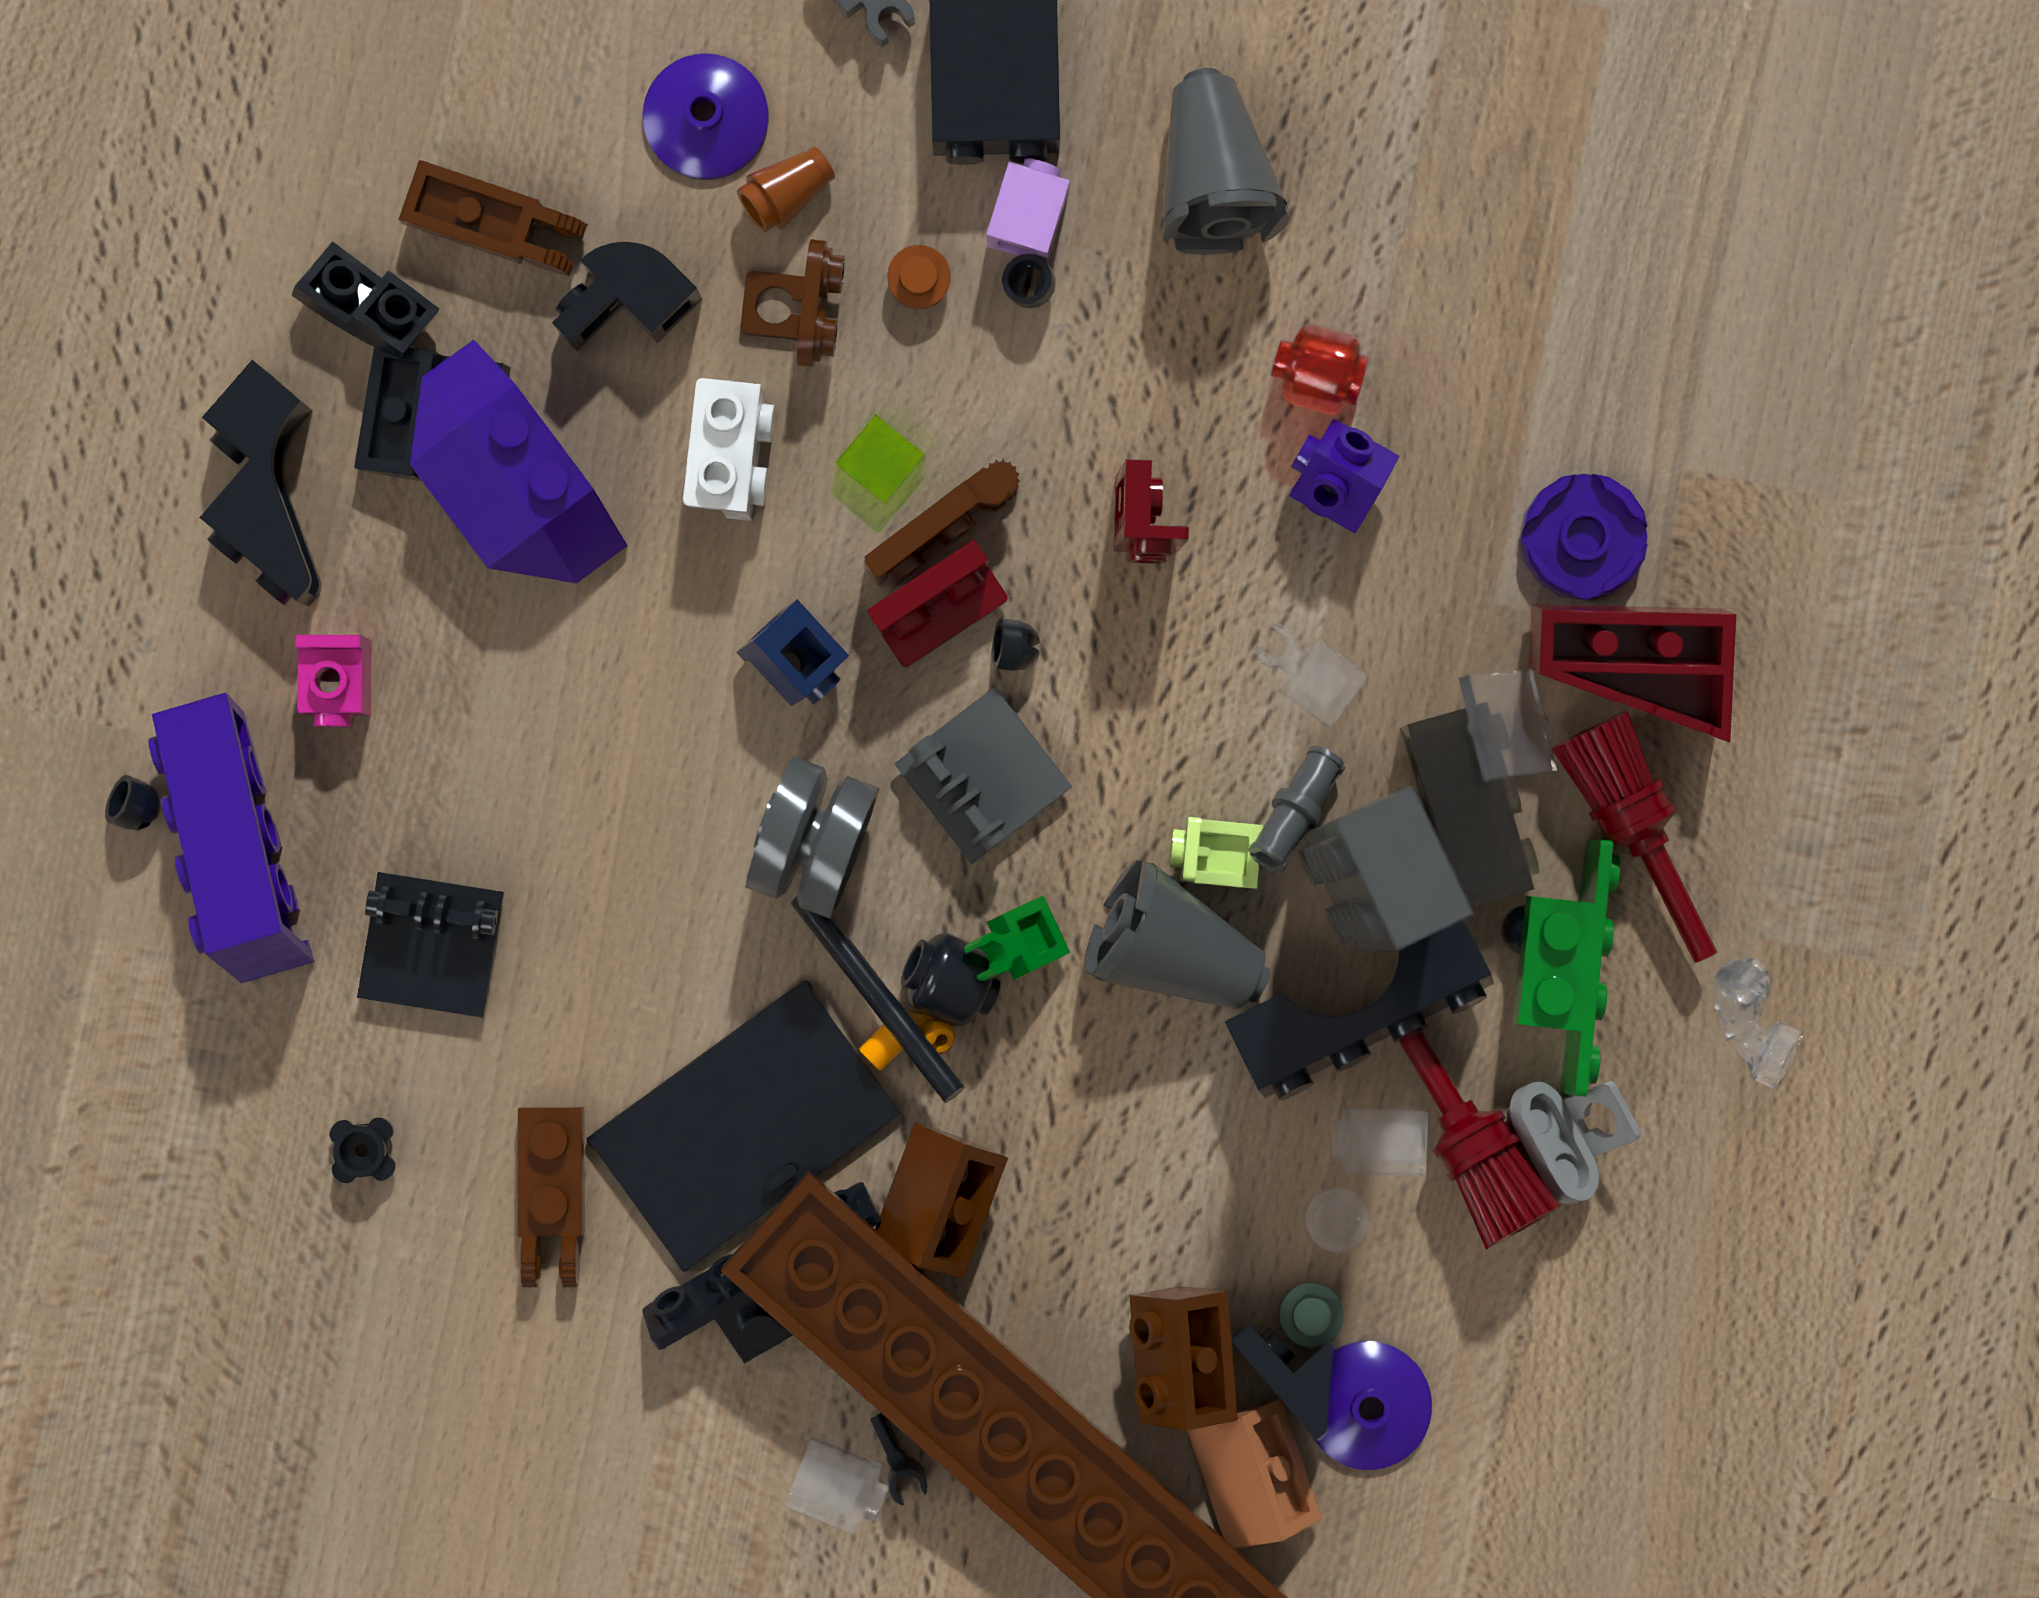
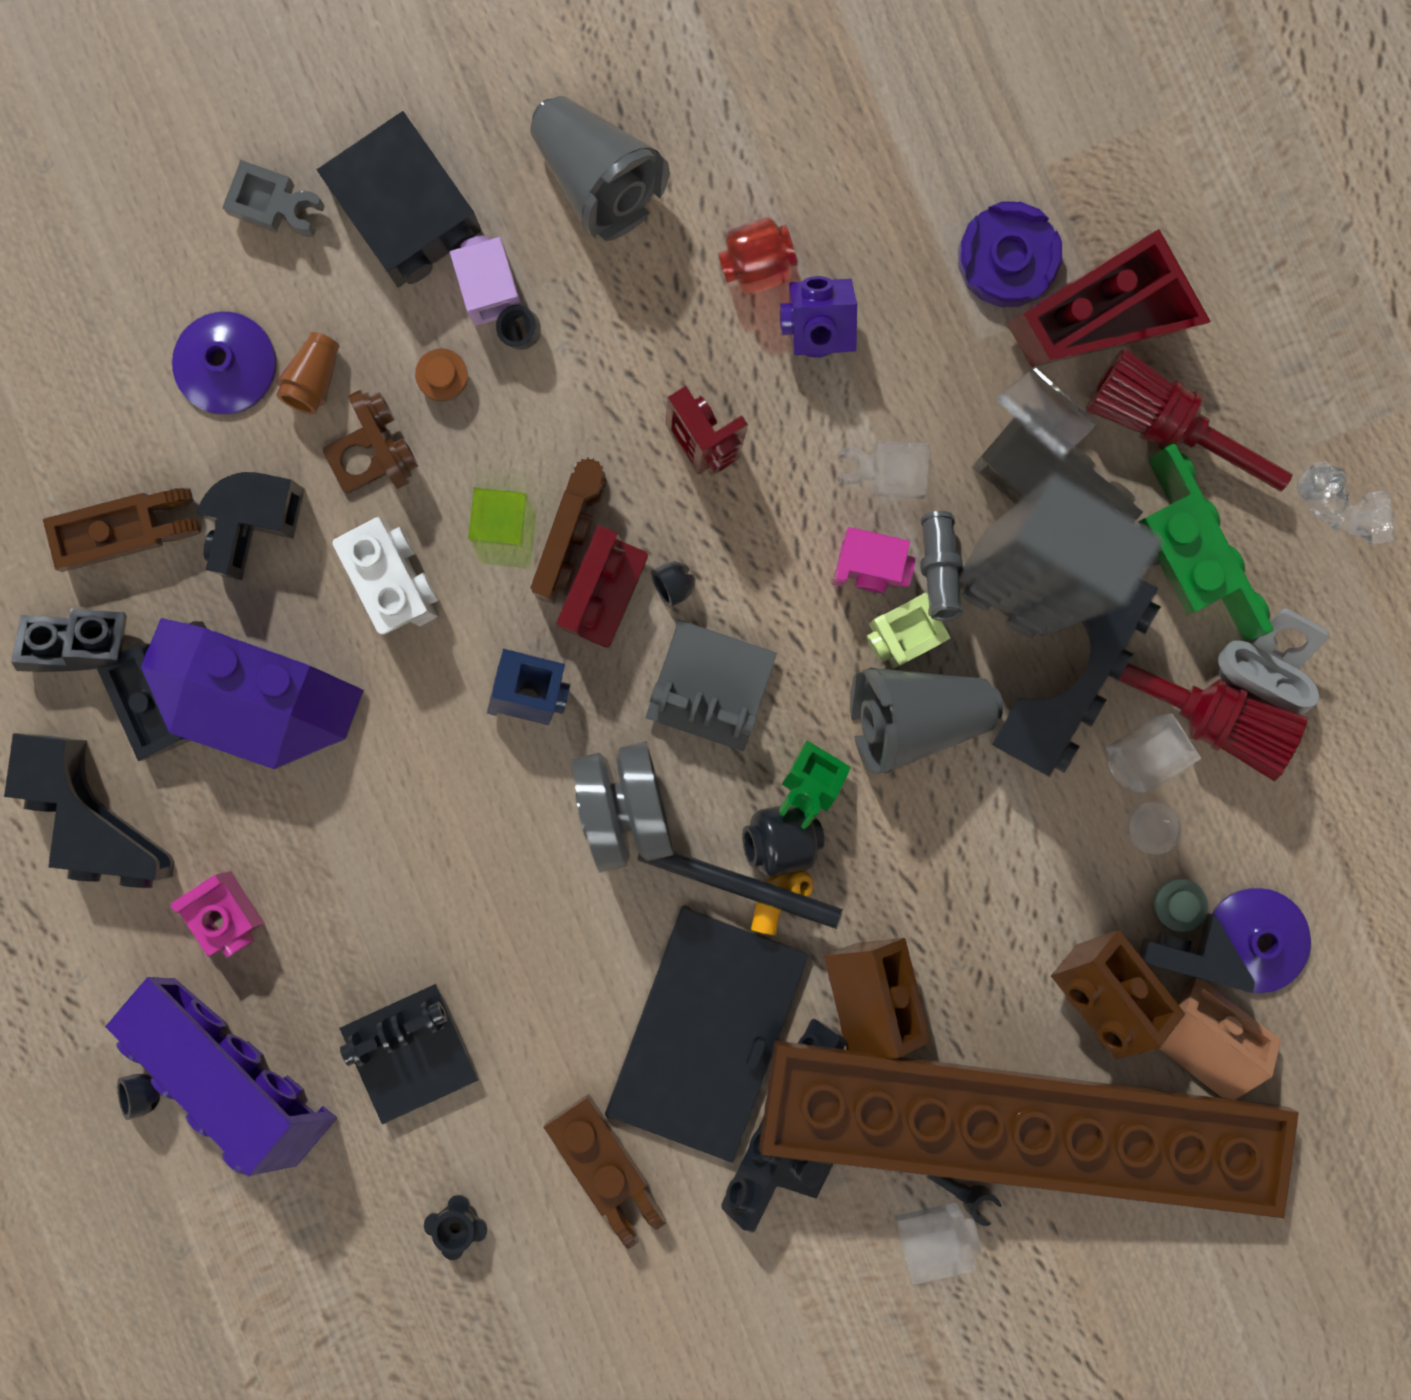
camera: 30 degrees left, 0 degrees up
(1231, 759) = (874, 561): none -> dark pink brick

